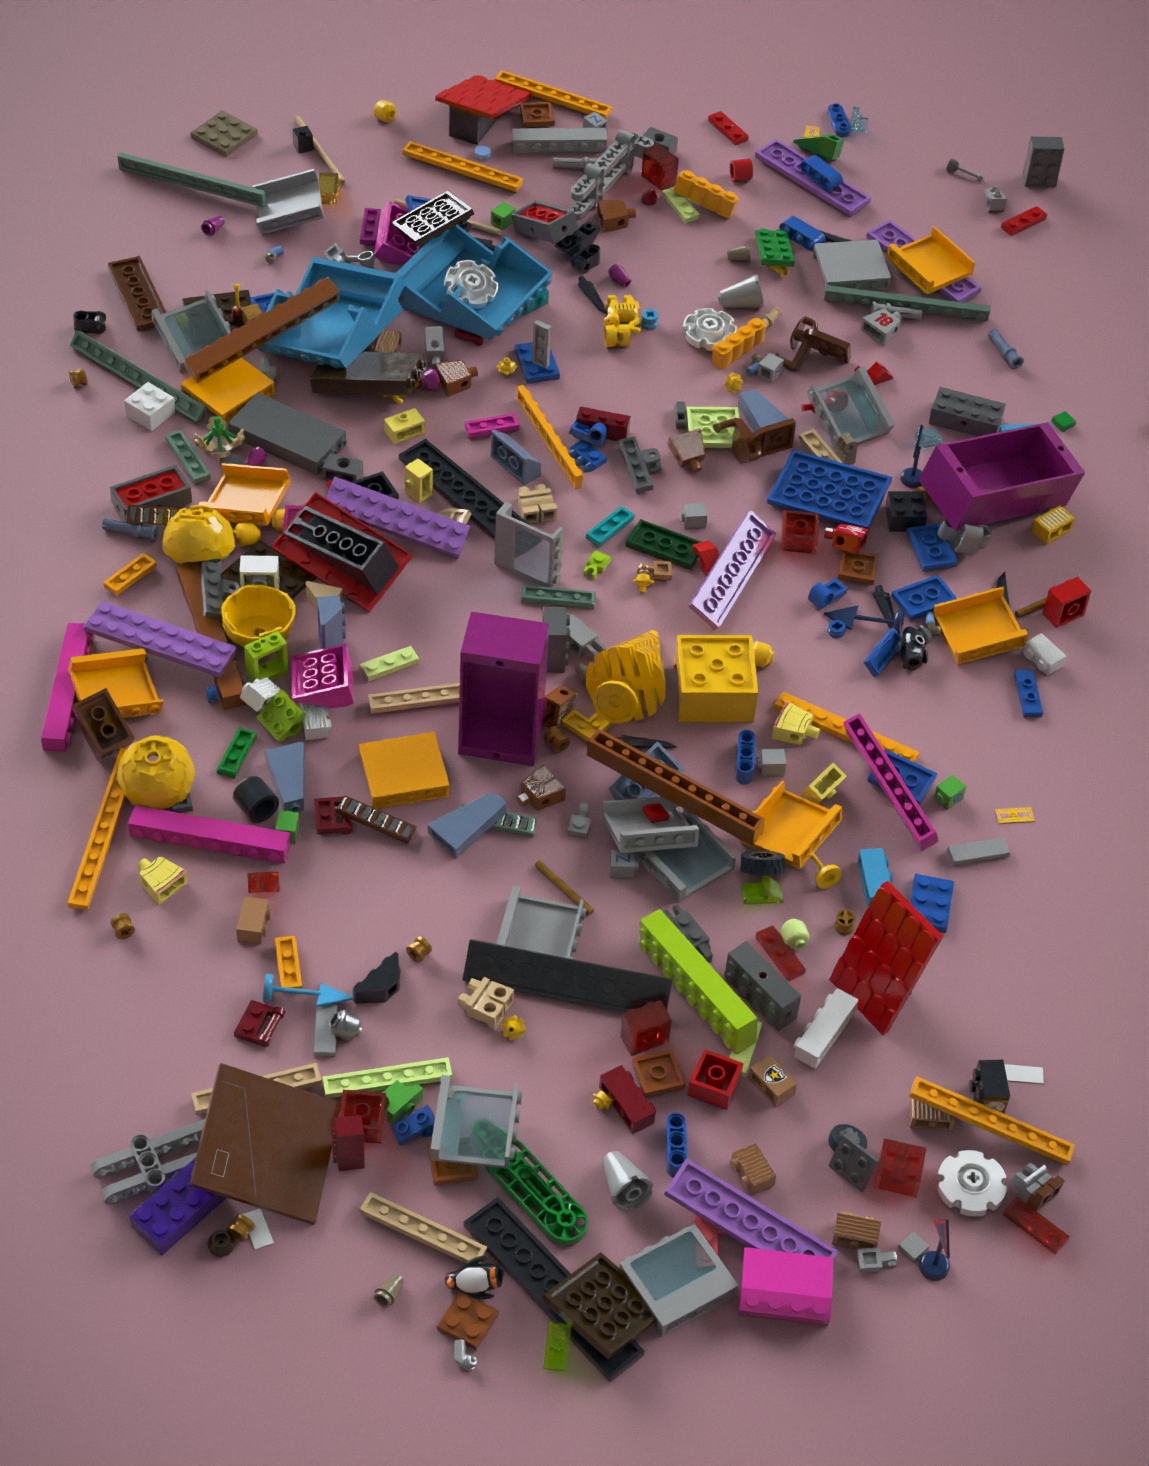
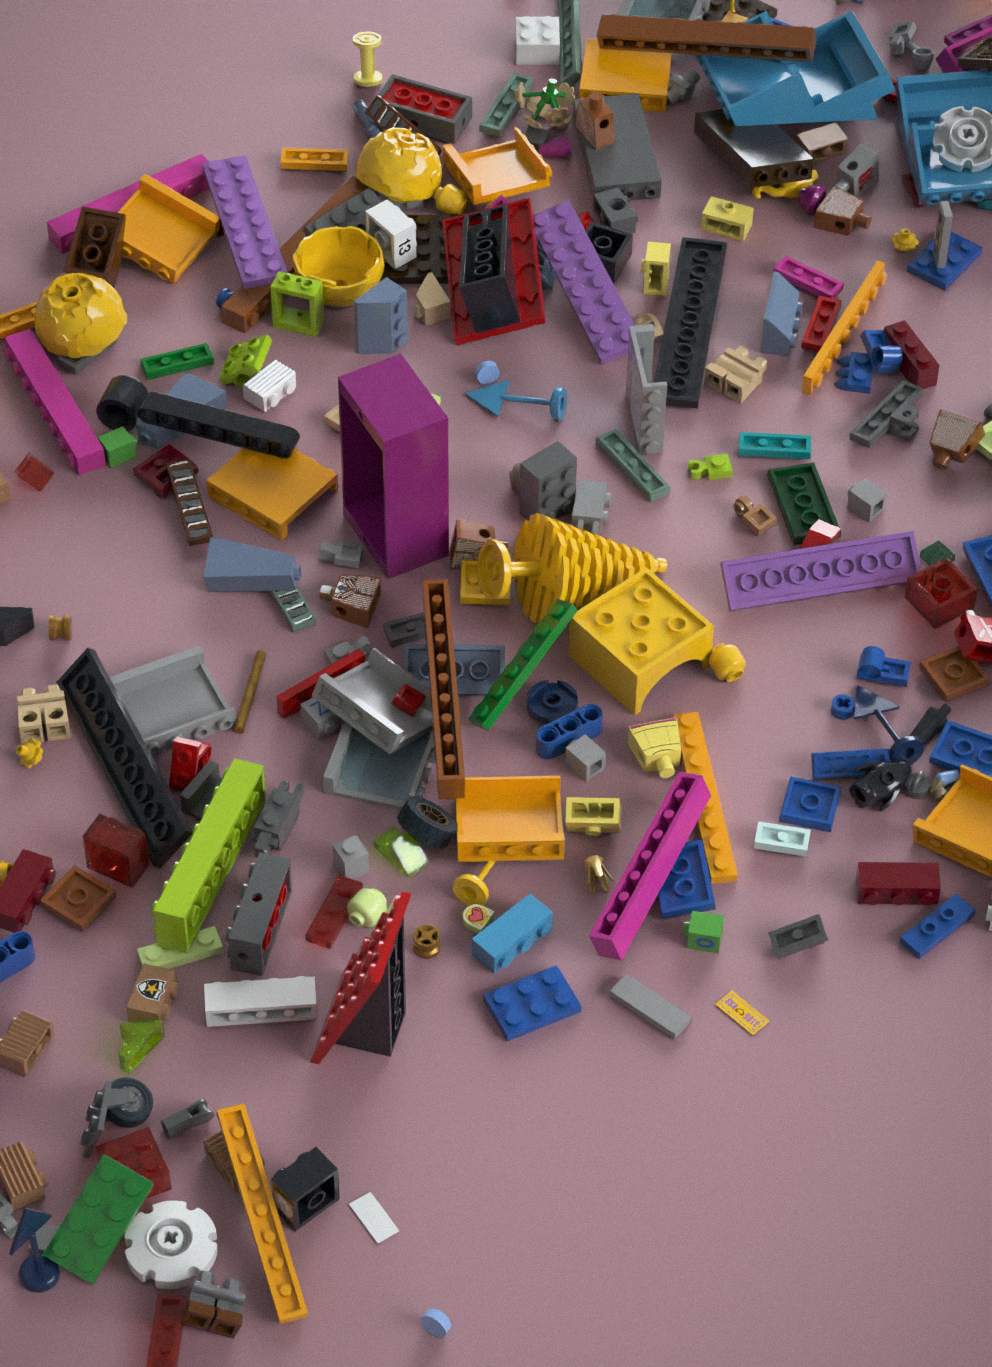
camera: 55 degrees right, 0 degrees up
(74, 478) = (366, 42): none -> light yellow hose
(259, 693) = (247, 323): white brick -> none
(270, 423) = (595, 120): none -> dark orange torso
(323, 677) = (318, 356): dark pink slope -> none
(335, 761) = (218, 425): none -> black beam
(414, 611) = (487, 372): none -> light blue tile
(435, 623) = (493, 396): none -> dark azure piece
(498, 770) = (345, 554): none -> light grey plate
(534, 444) = (821, 323): none -> red plate
(556, 739) = (434, 568): pearl gold wheel -> none
(591, 779) = (405, 630): none -> dark grey plate
(597, 840) = (290, 700): none -> red plate
(602, 948) = (187, 761): none -> red pin
(630, 955) = (200, 790): none -> dark grey panel
(638, 742) = (497, 632): black bar -> none
(643, 581) = (725, 513): yellow plant -> none
(685, 733) = (522, 664): none -> green plate
(711, 759) = (545, 691): none -> dark blue plate
(715, 1079) = (105, 945): red brick -> none
(751, 917) = (351, 858): none -> light grey brick
(764, 514) = (936, 553): none -> clear green tile
(802, 1106) = (140, 1040): none -> clear neon green slope
(846, 889) = (477, 917): none -> tile
(860, 811) = (595, 867): none -> pearl gold piece
(879, 1126) = (183, 1119): none -> dark grey bar
(893, 689) = (810, 804): none -> blue tile
(911, 716) = (782, 839): none -> light aqua plate
(928, 1201) = (98, 1219): none -> green plate
(988, 689) = (898, 883): none -> dark red brick
(990, 754) = (798, 936): none -> dark grey hinge
(1127, 1087) = (435, 1323): none -> light blue tile

